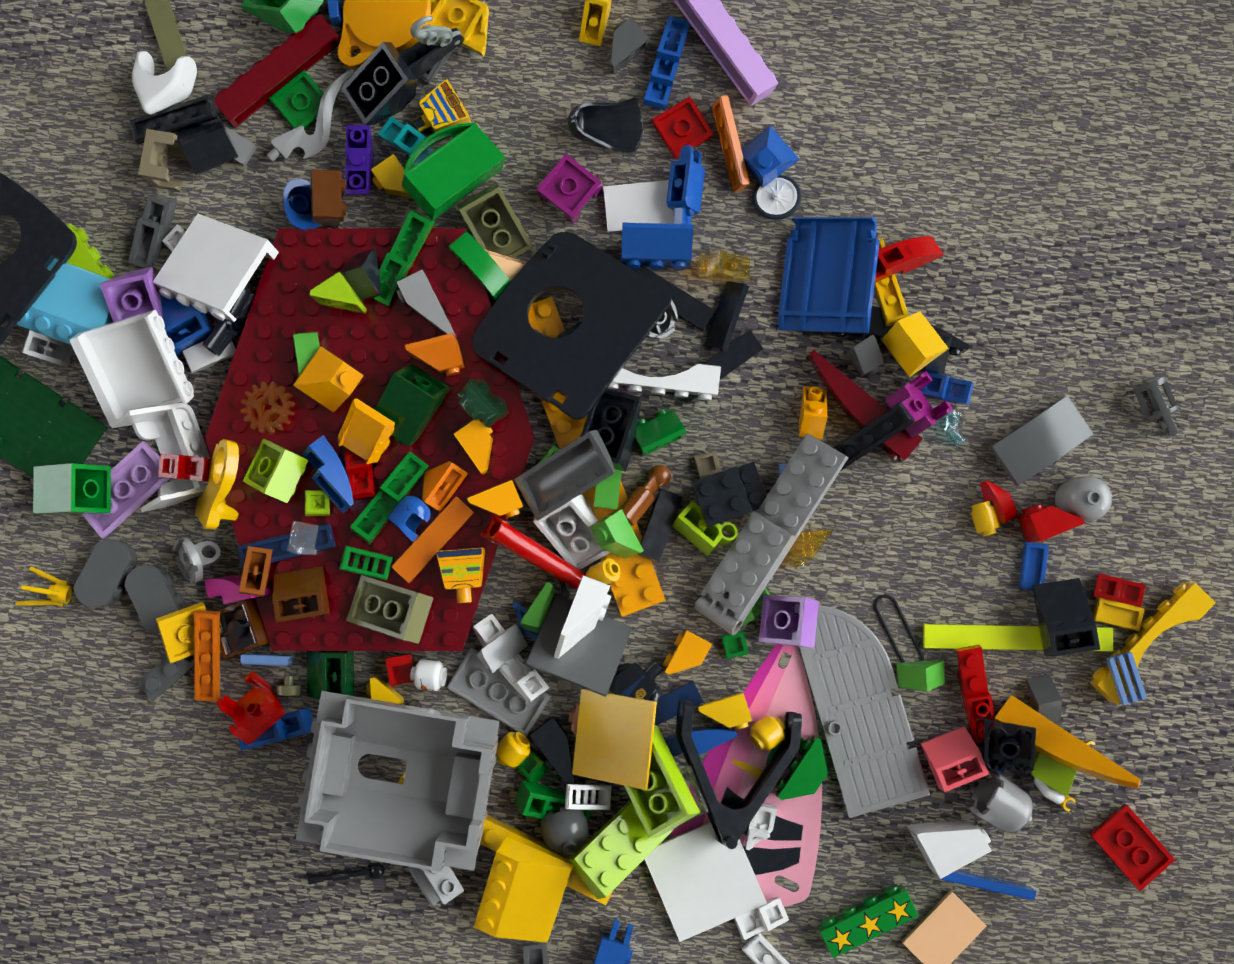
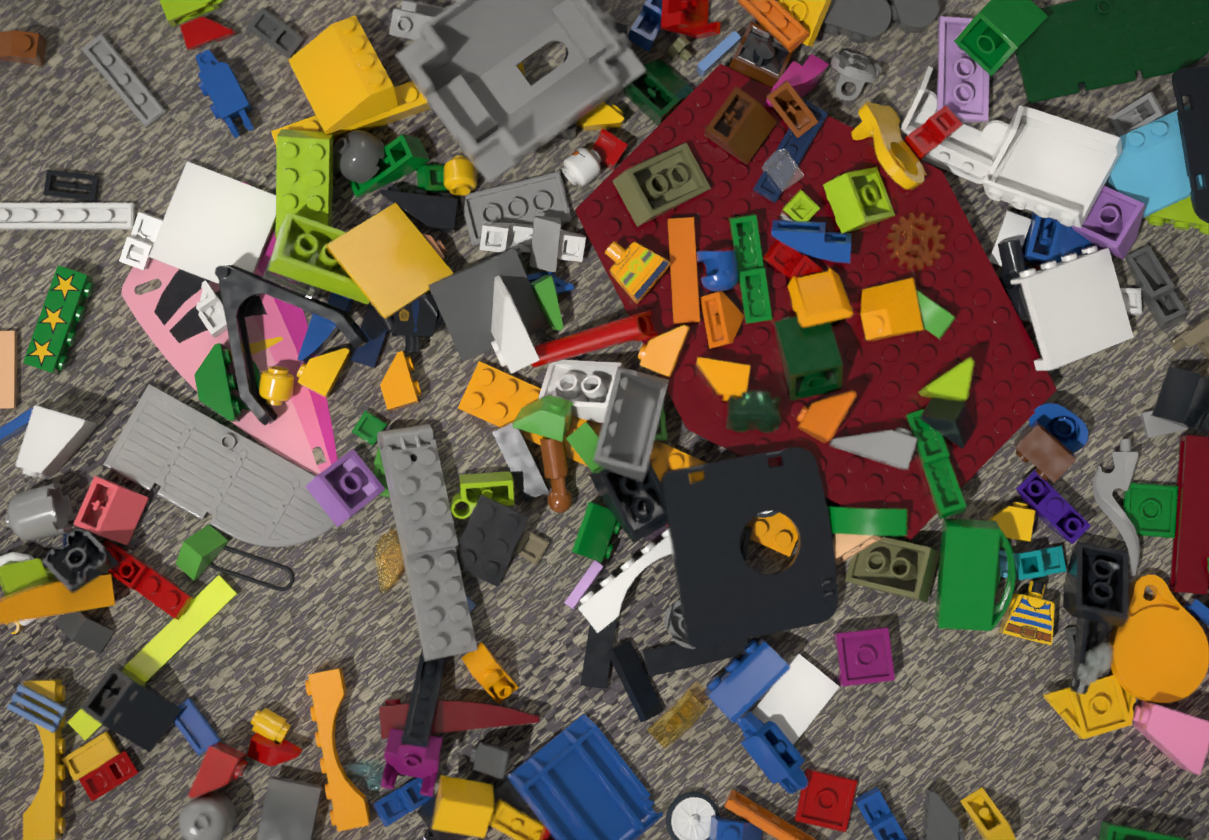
camera: 130 degrees right, 0 degrees up
(346, 556) = (740, 196): green slope -> none
(604, 571) = (526, 380): yellow brick -> none
(604, 796) = (351, 207): white slope -> none
(608, 124) = (885, 741): black hair -> none
(698, 407) = (584, 585): none -> lavender tile
(981, 421) = (348, 802): none -> light orange arch

